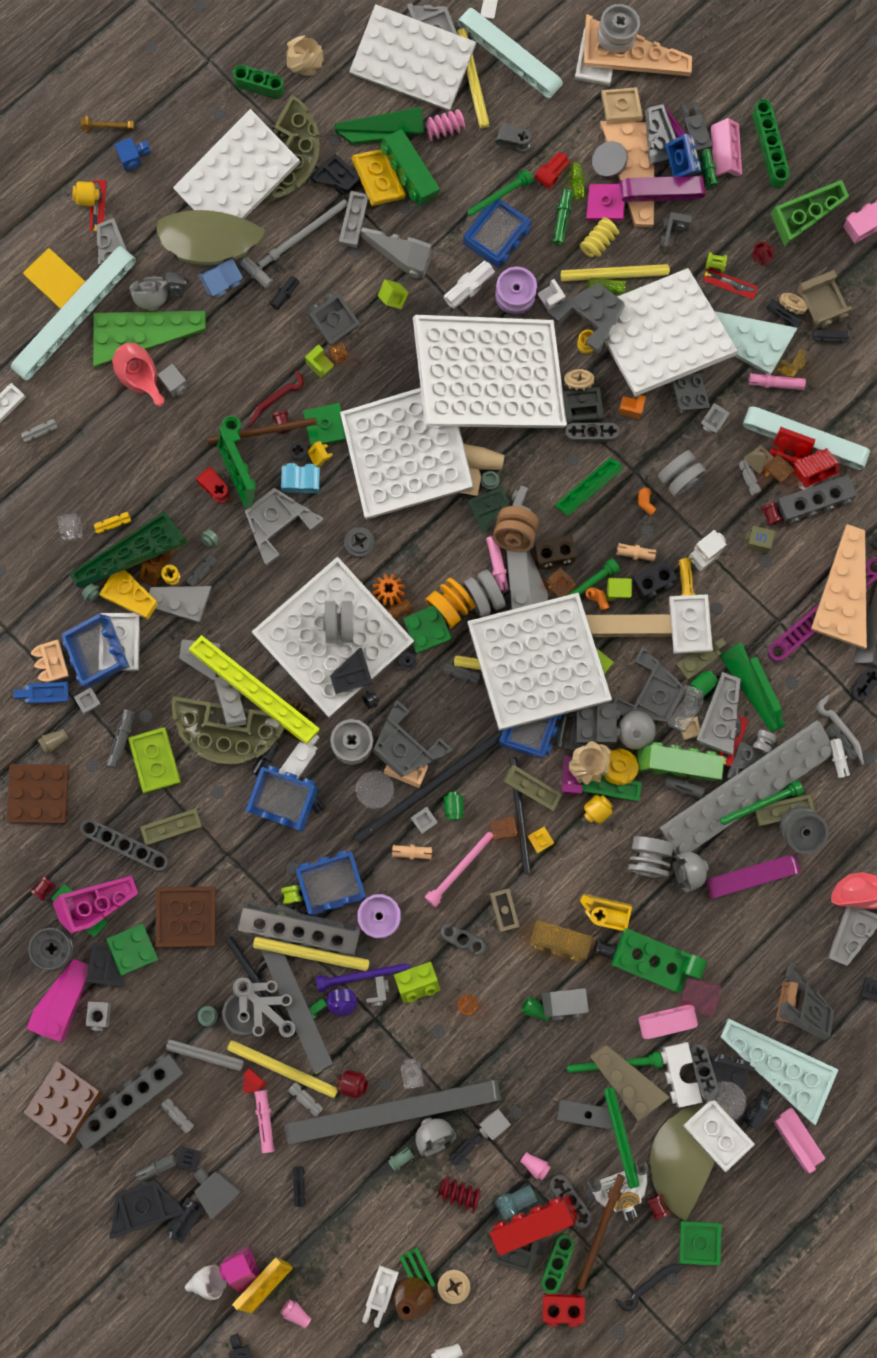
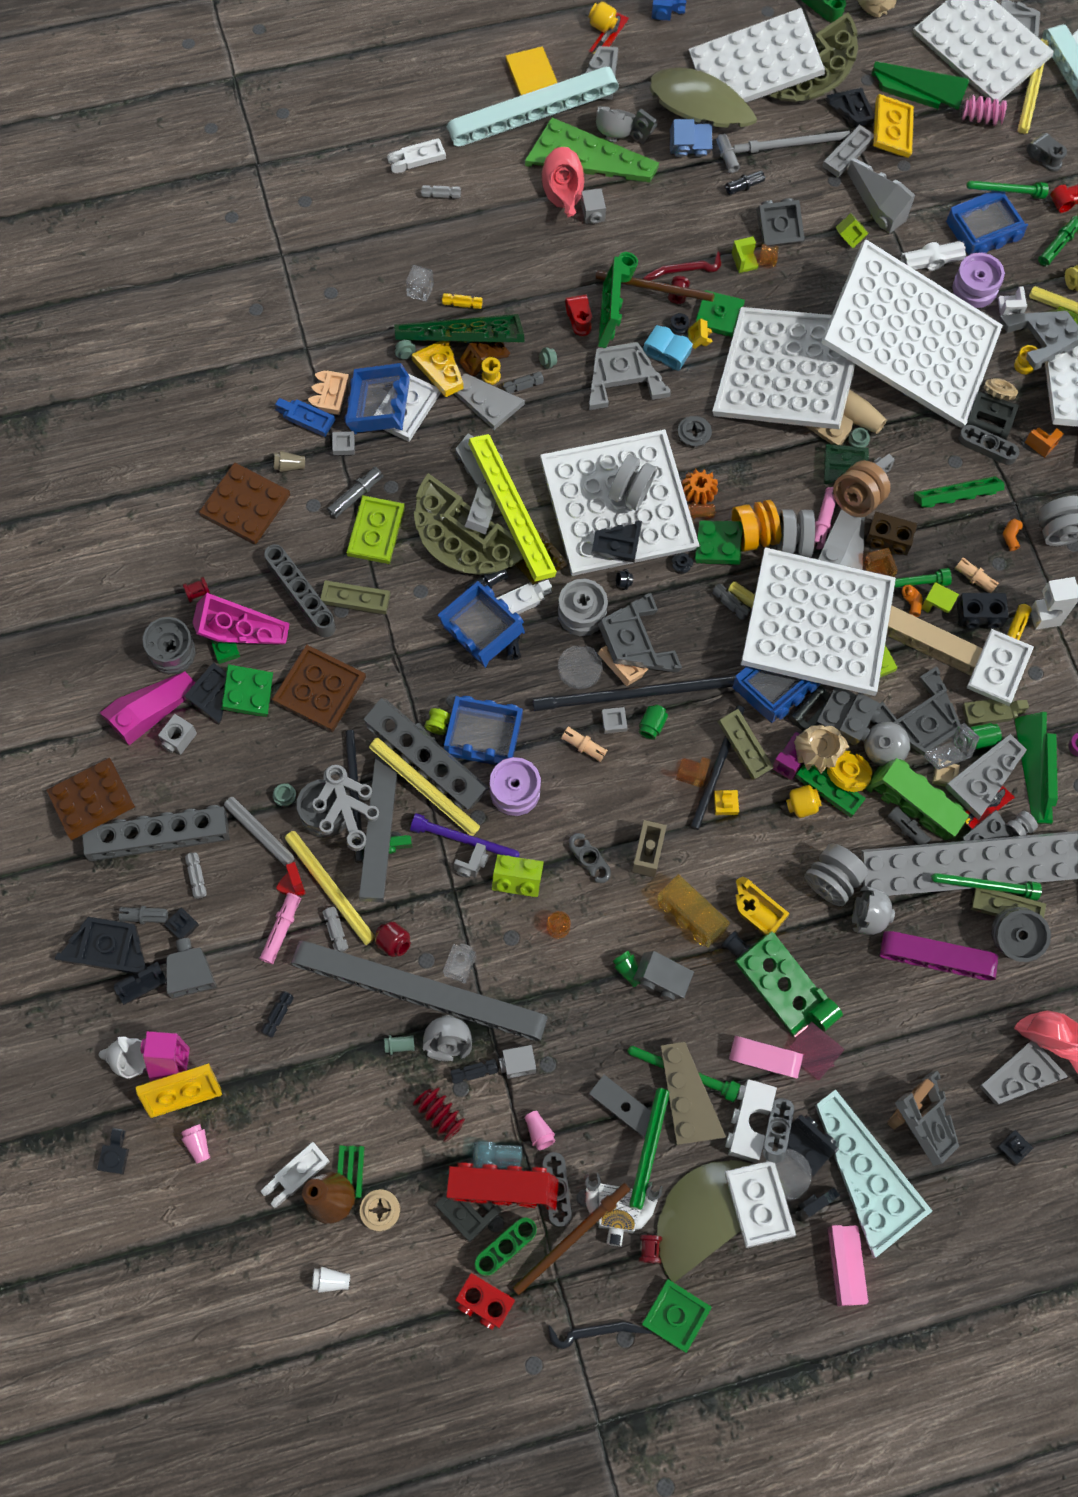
camera: 30 degrees right, 10 degrees down
(341, 1002) = (427, 852): dark purple hair -> none
(409, 167) = (929, 130): green brick -> none
(435, 896) = (583, 800): bright pink piece -> none

